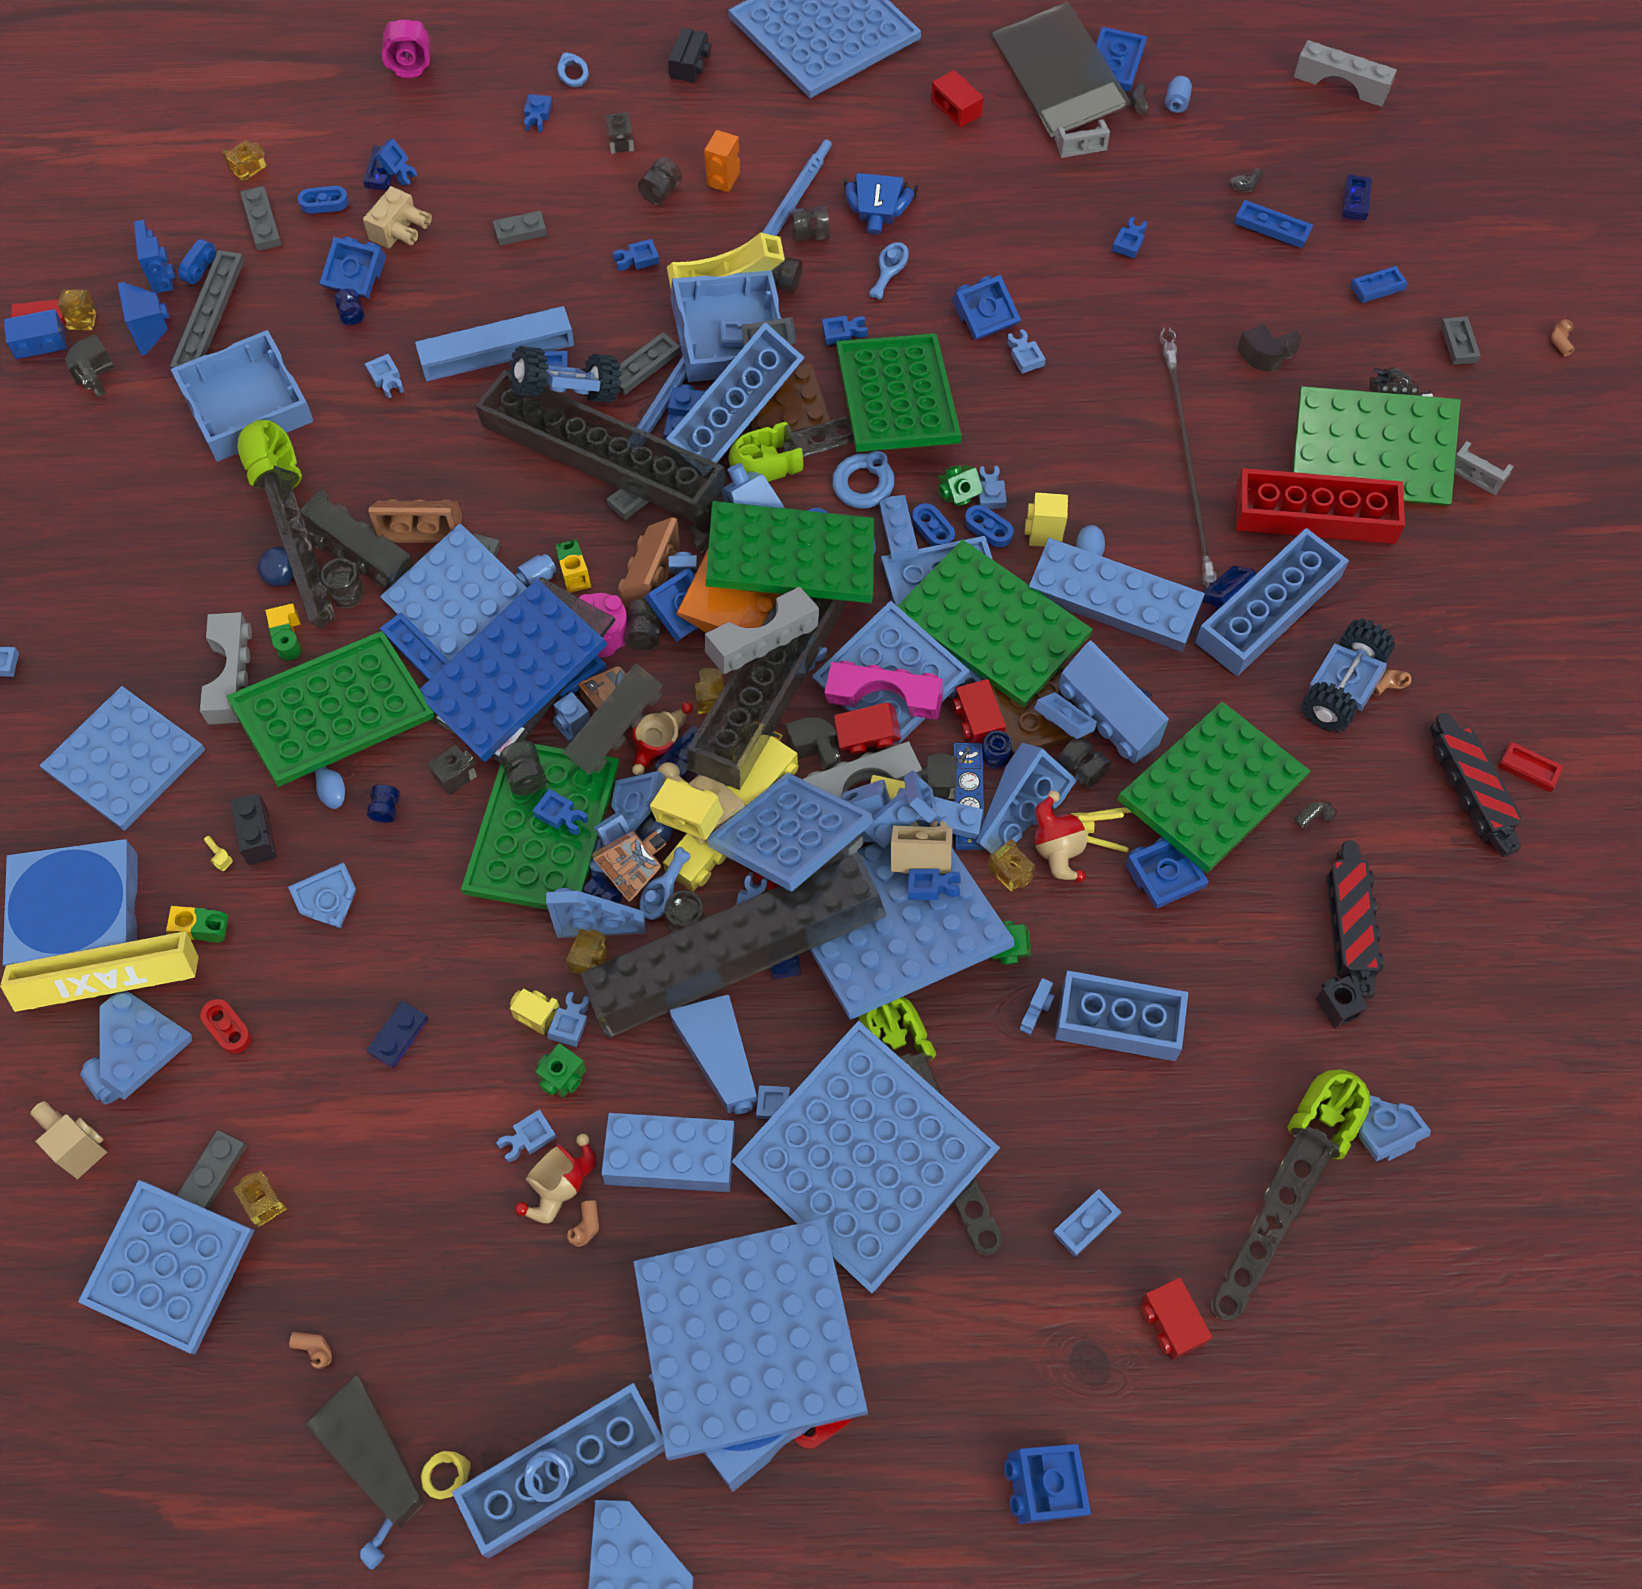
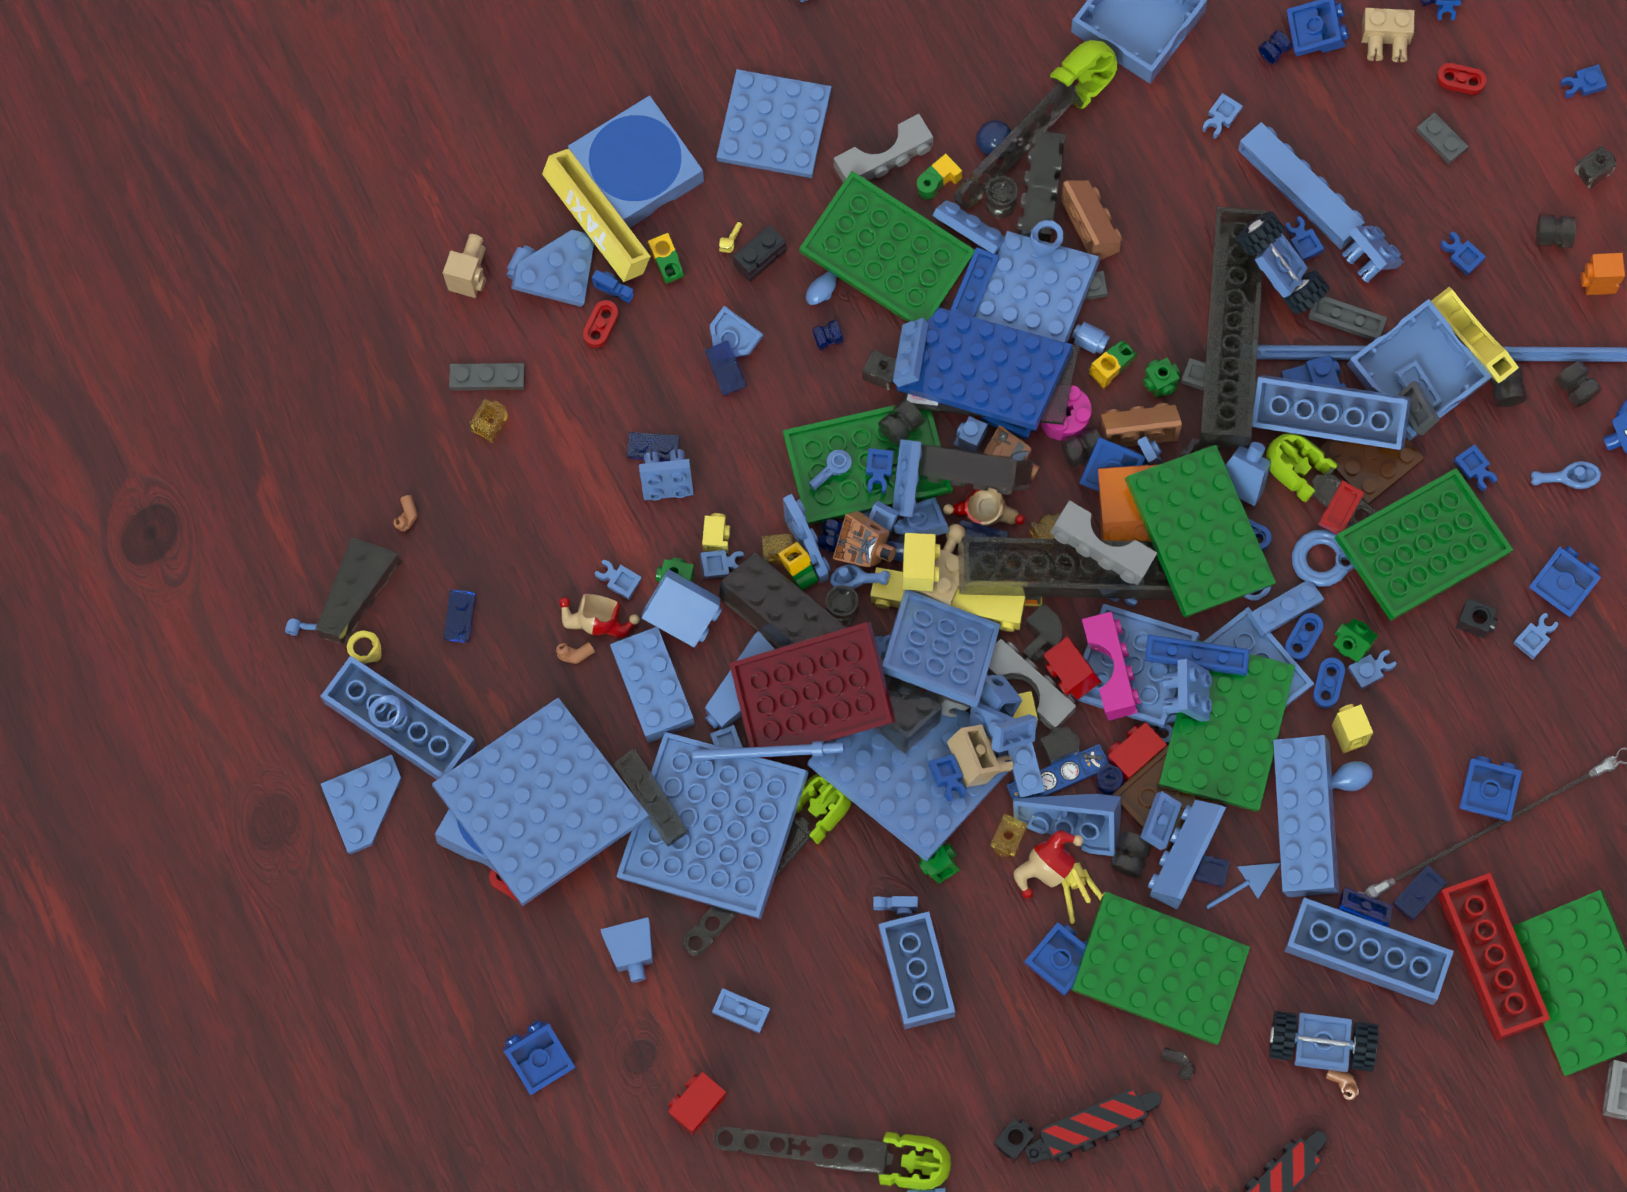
camera: 70 degrees right, 10 degrees up
(166, 1266) = (414, 386): medium blue plate -> none
(188, 996) = (609, 284): none -> blue plate
(353, 625) = (969, 226): none -> medium blue plate
(356, 918) = (726, 368): none -> clear blue plate
(420, 565) = (1042, 249): none -> medium blue piece
(444, 1031) = (666, 478): none -> medium blue plate
(453, 728) = (910, 352): none -> medium blue plate
(470, 1339) = (459, 616): none -> clear blue plate
(475, 189) = (1461, 77): none -> red plate
(530, 848) = (837, 463): none -> medium blue plate
(585, 786) = (907, 477): none -> medium blue plate
(602, 1077) = (682, 608): none -> medium blue brick
(603, 306) = (1372, 242): none -> medium blue plate
(612, 529) = (1159, 384): none -> green brick
(622, 936) = (800, 567): none -> leg
(776, 974) = (813, 690): none -> dark red plate
(801, 1207) = (651, 797): none -> clear smoke plate
(828, 437) = (1341, 508): none -> red tile
(843, 996) = (817, 749): none -> medium blue bar
(913, 610) = (1207, 655): none -> blue tile
(941, 617) = (1193, 691): none -> medium blue plate
(962, 1314) = (630, 947): none -> medium blue torso
(986, 387) = (1467, 623): none -> black brick
(1152, 669) = (1256, 877): none -> medium blue piece
(1154, 442) = (1490, 788): none -> blue plate
(1228, 541) = (1419, 893): none -> clear blue plate

